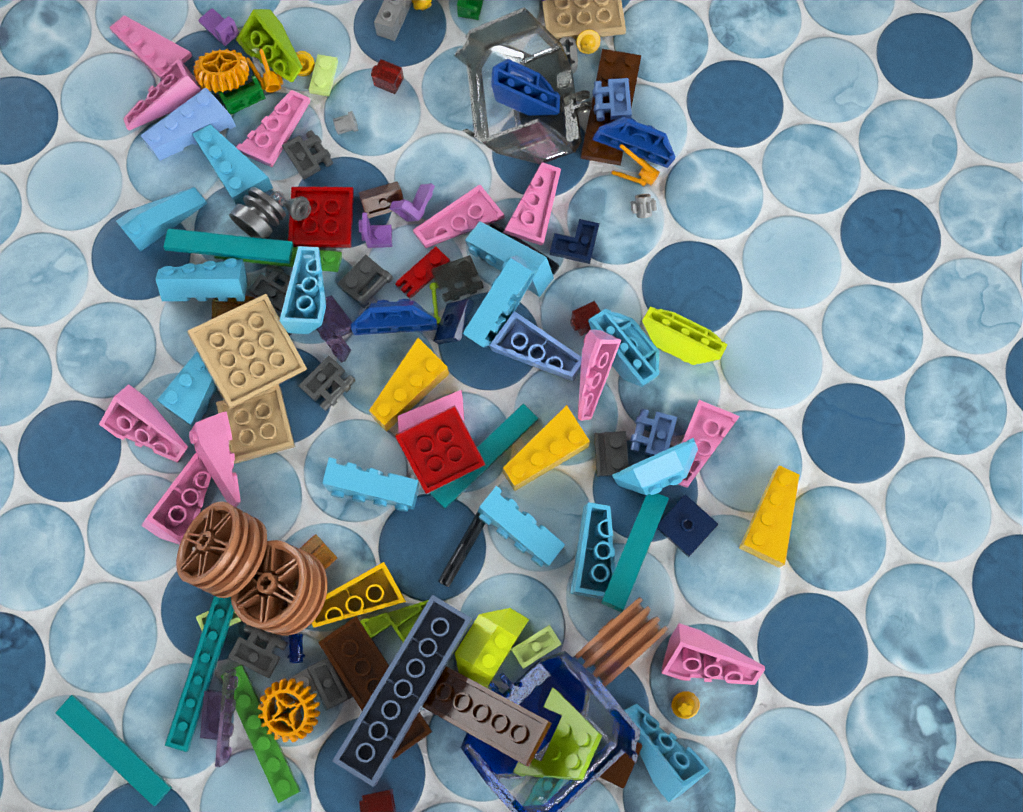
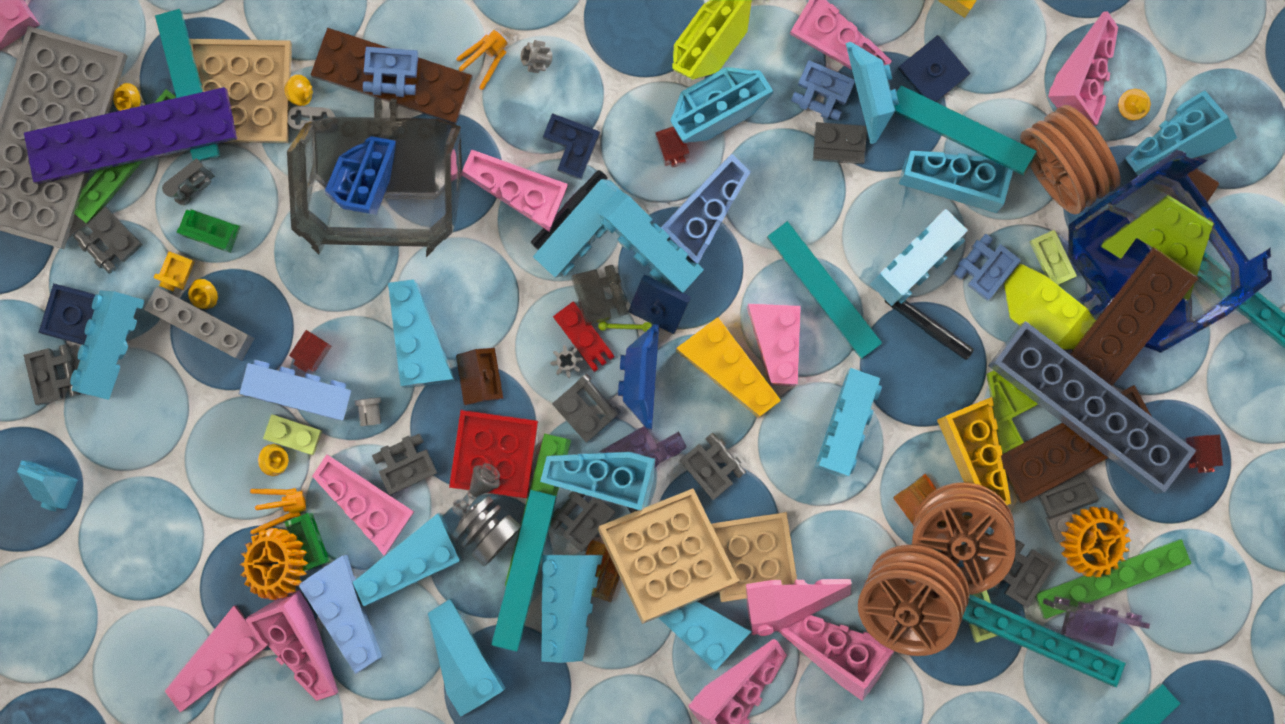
camera: 85 degrees left, 10 degrees up
(222, 29) = (201, 565): medium lavender bracket -> none
(267, 33) = (230, 502): lime wedge -> none
(295, 648) = (1028, 530): clear blue pin -> none
(354, 66) = (295, 391): none -> light blue wedge
(376, 235) = (527, 386): medium lavender bracket -> none
(400, 266) = (566, 354): none -> light grey gear
(406, 147) = (416, 340): none -> medium azure wedge
(415, 210) = (494, 331): medium lavender bracket -> none
(440, 449) = (819, 336): red plate -> none
(459, 218) = (517, 278): bright pink wing -> none
(517, 595) = (994, 270): none -> medium blue plate
(549, 448) = (826, 209): yellow wedge -> none
(596, 363) = (737, 140): bright pink wedge -> none
(639, 138) = (450, 49): blue wedge -> none

